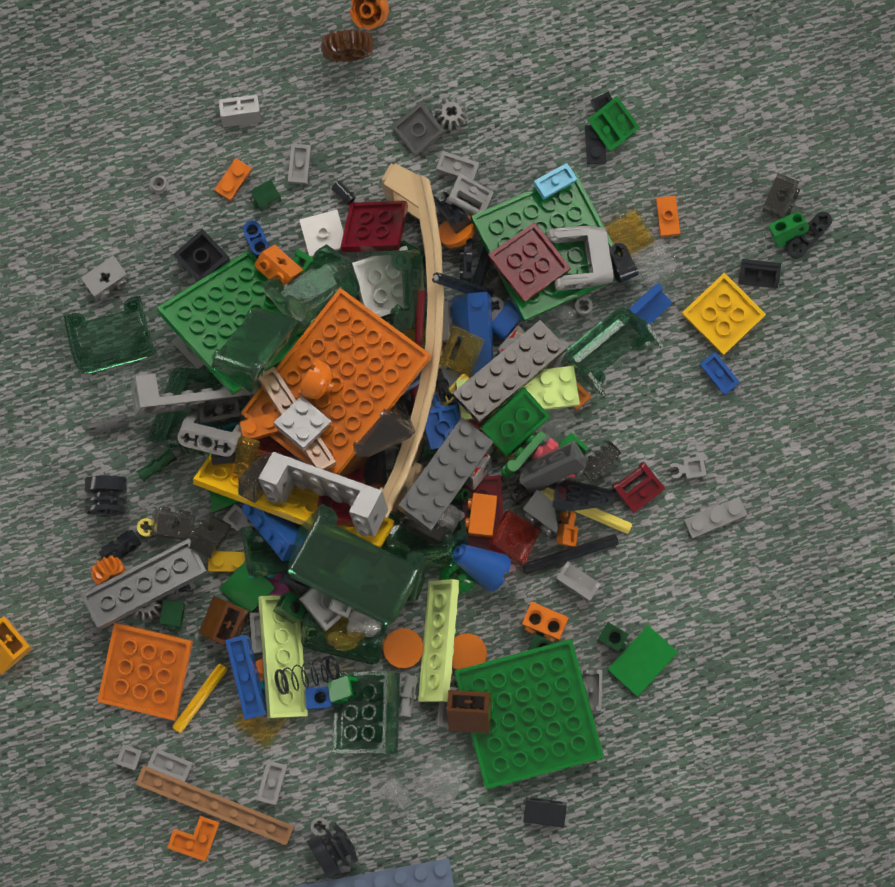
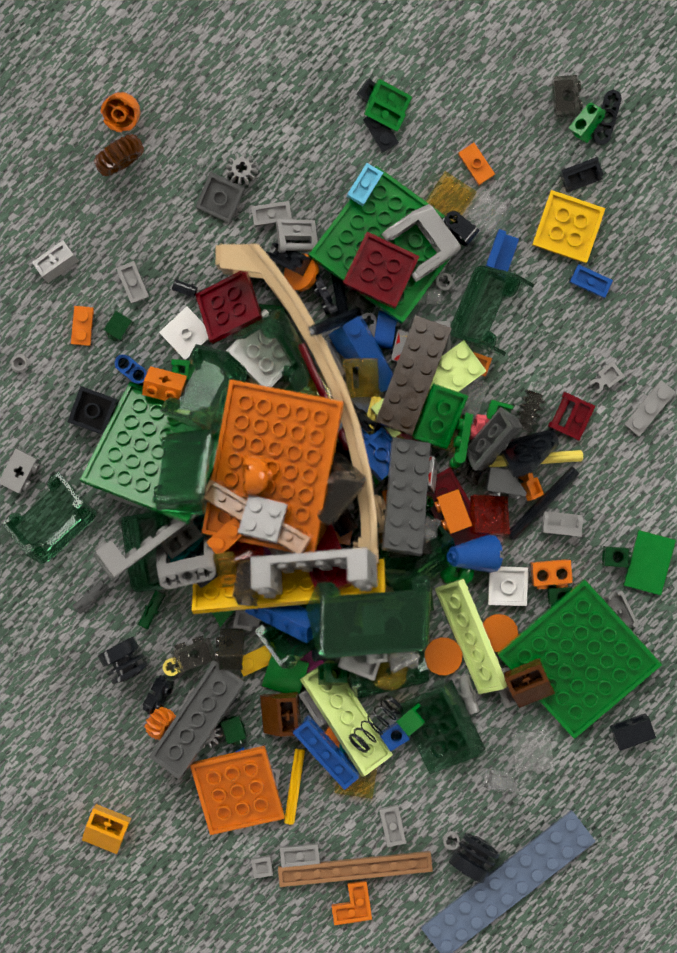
camera: 25 degrees left, 10 degrees up
(498, 613) = (508, 586): none -> white plate

